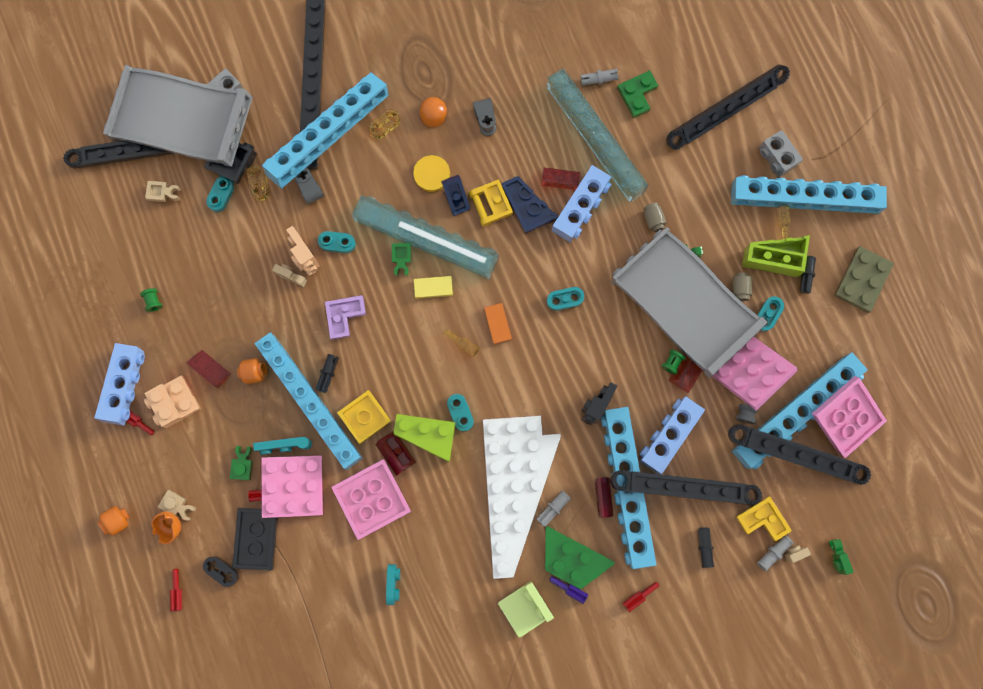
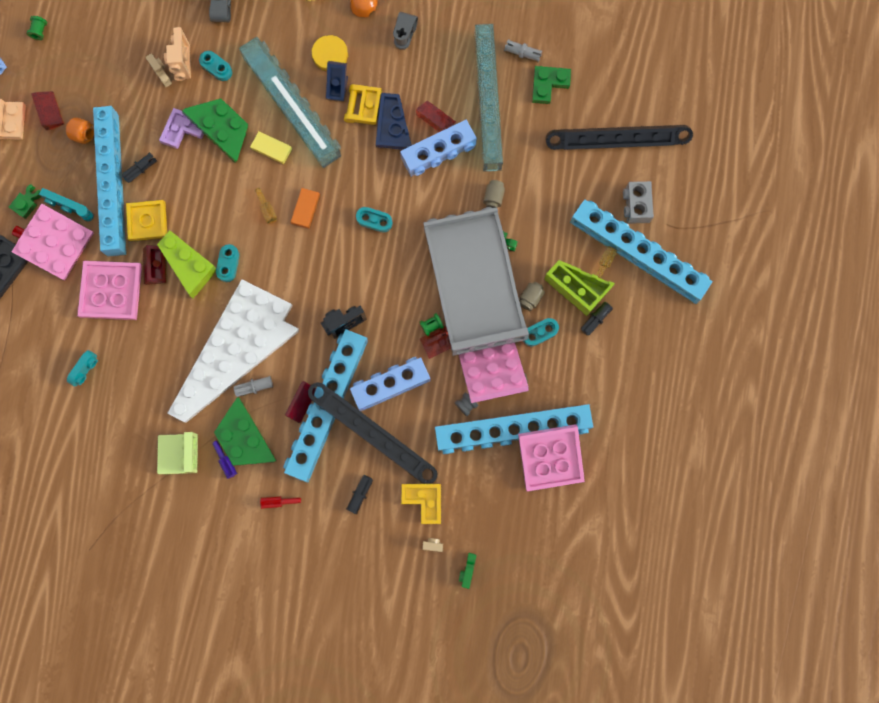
camera: 30 degrees right, 0 degrees up
(377, 293) = (220, 125): none -> green wing
(401, 255) = (260, 106): green plate -> none
(775, 553) = (415, 534): light grey pin -> none
(799, 454) = (486, 462): black plate -> none
(864, 279) = (644, 351): olive plate -> none

